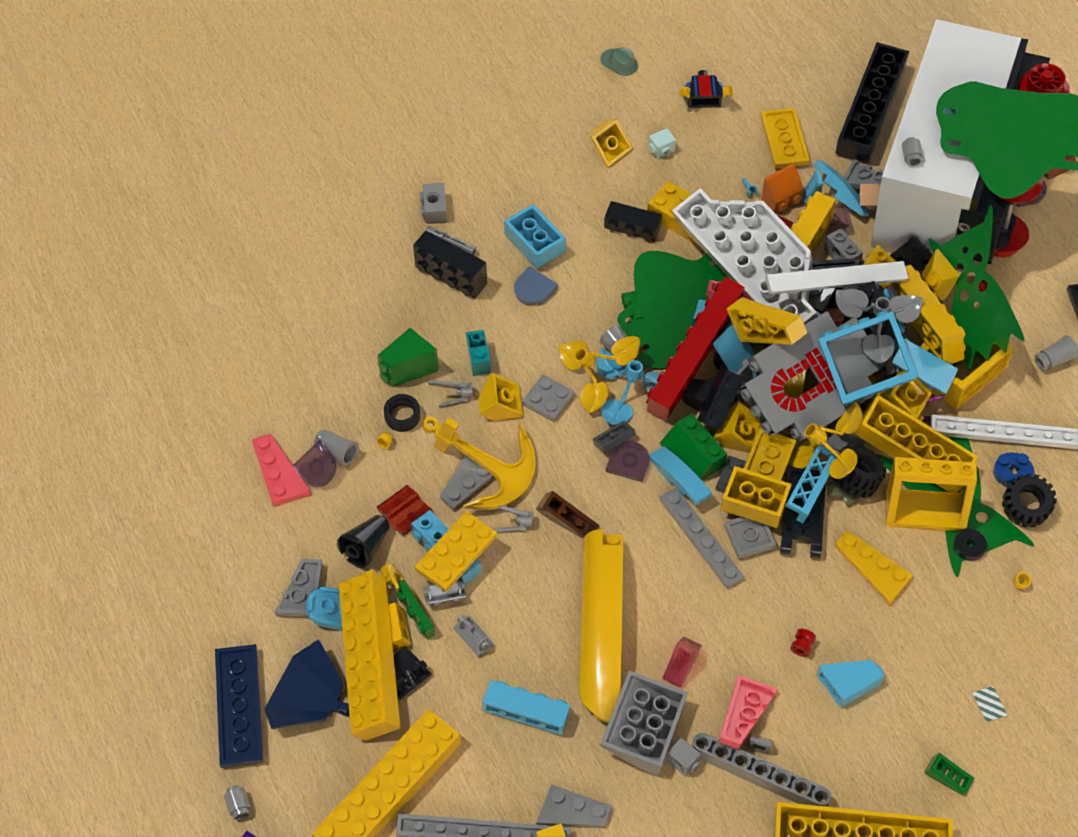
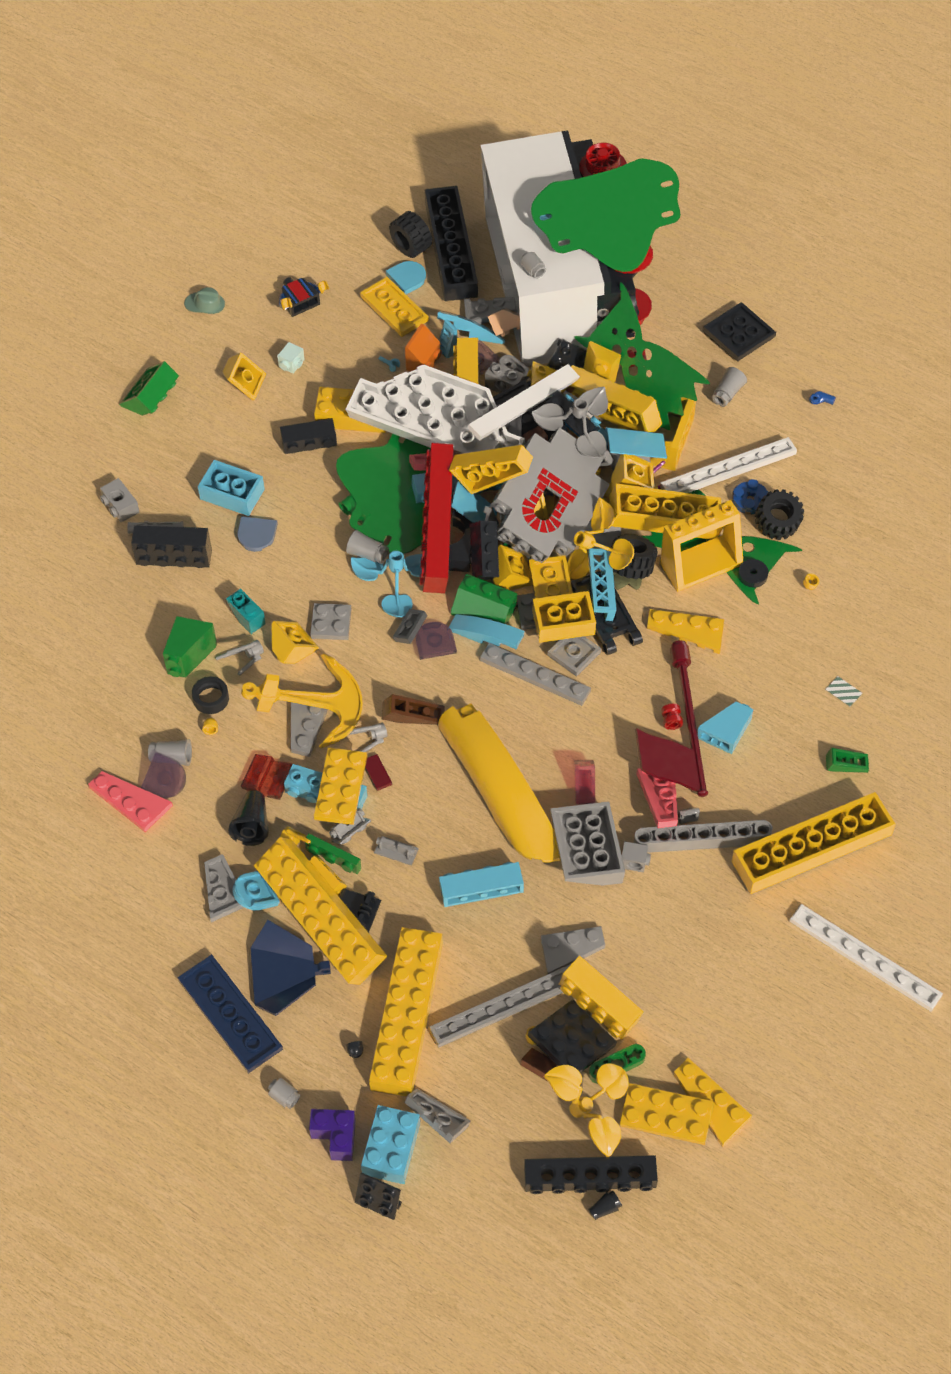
camera: 30 degrees left, 0 degrees up
(323, 797) = (355, 1049): none -> black hinge
(502, 555) = (377, 773): none -> dark red piece
(522, 117) = (150, 389): none -> green slope
(577, 354) = (331, 573): yellow plant -> none
(774, 683) = (667, 758): none -> dark red flag
(815, 115) = (407, 276): none -> medium azure tile
(838, 77) = (410, 234): none -> black tyre
(863, 241) = (513, 363): none -> light grey plate
(881, 386) = (562, 440): medium azure window -> none

